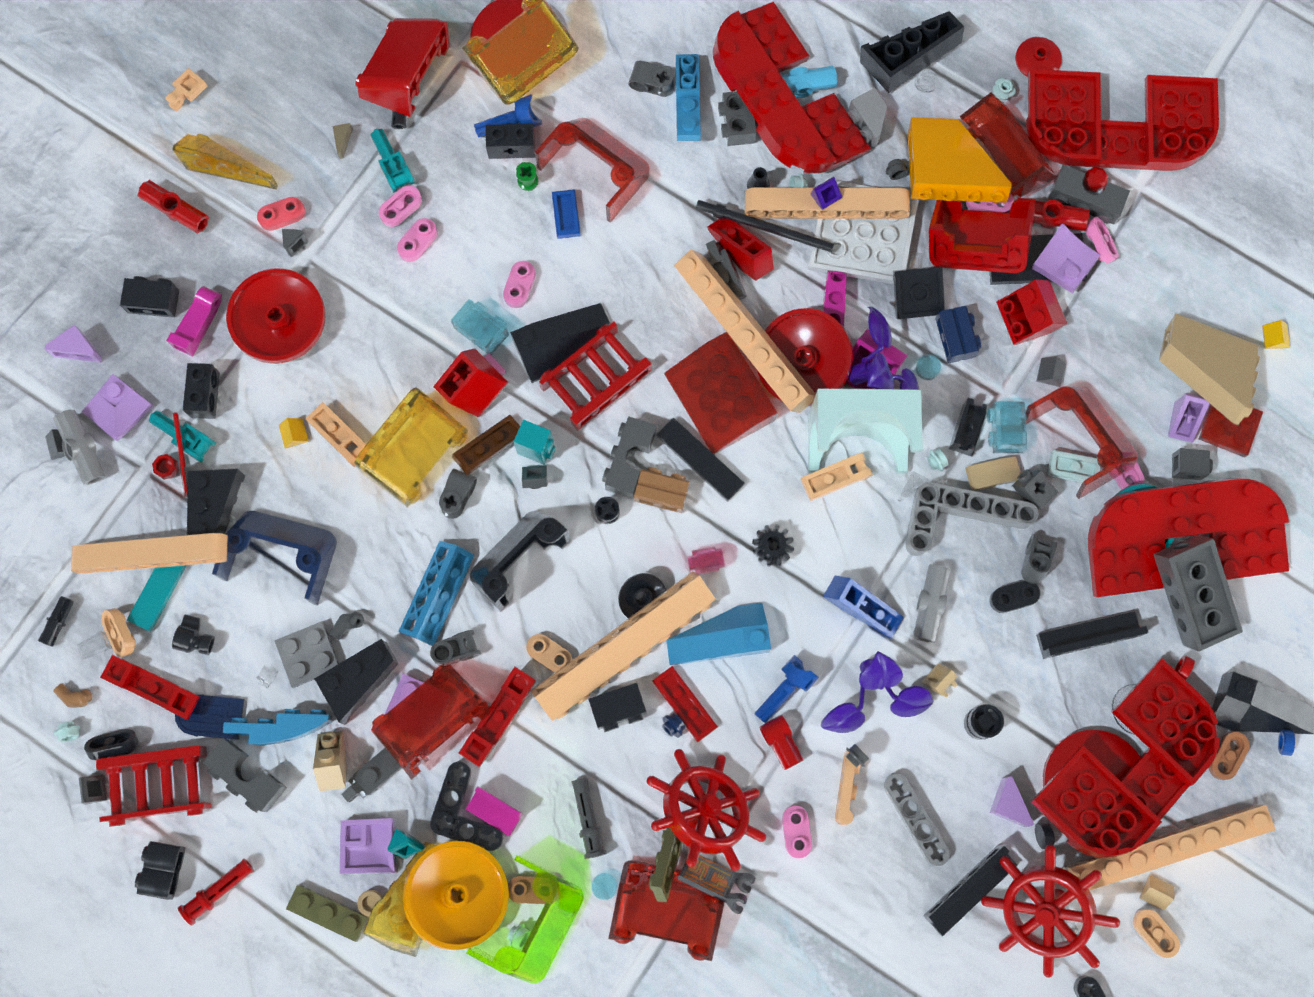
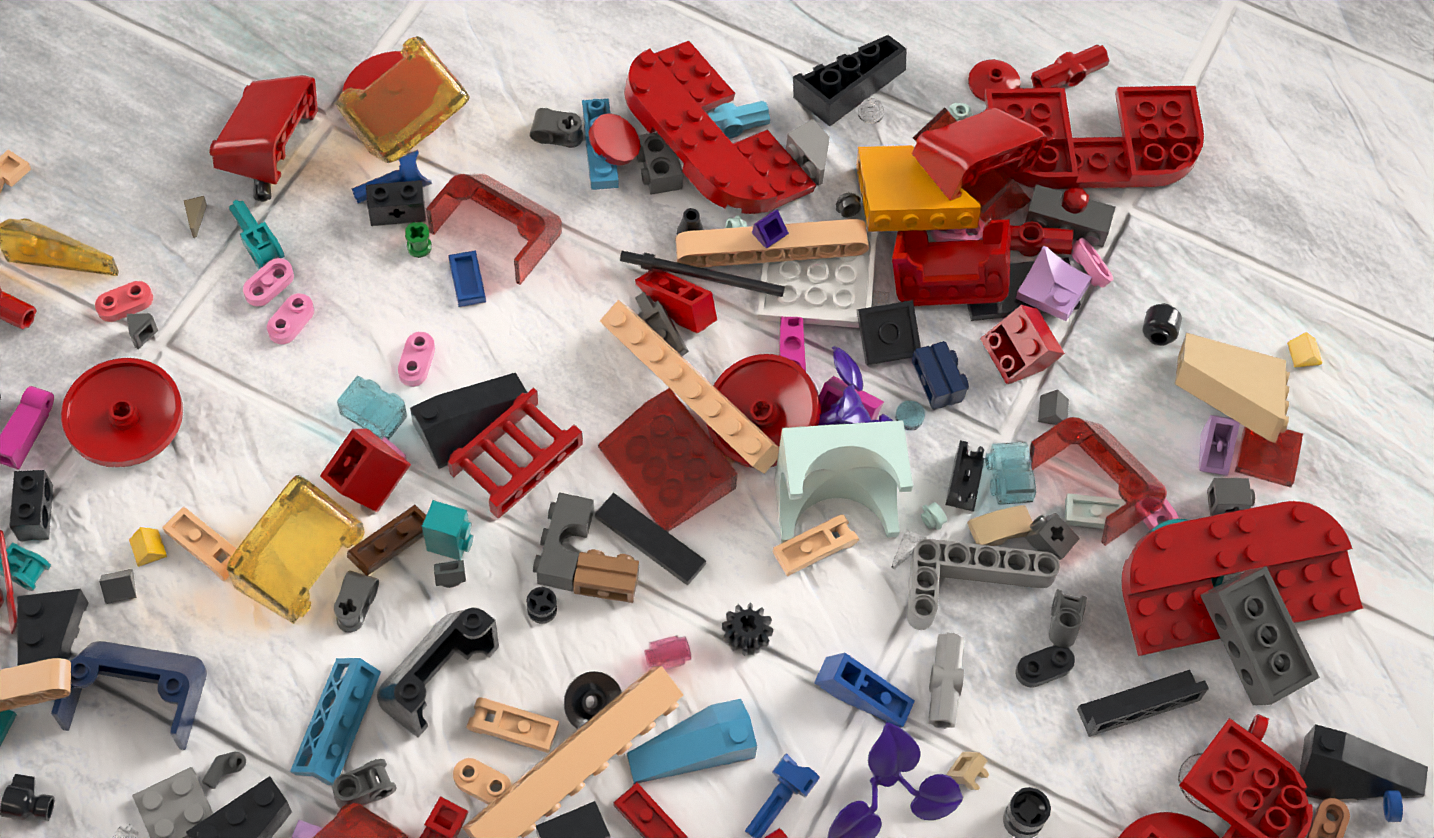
camera: 10 degrees left, 15 degrees down
(268, 464) = (118, 586): none -> dark grey slope
(577, 609) = (513, 725): none -> light nougat plate
(700, 96) = (614, 139): none -> tile
(1015, 130) = (976, 146): none -> red windscreen
(1108, 52) = (1071, 68): none -> red piece
(1155, 302) = (1162, 324): none -> black head

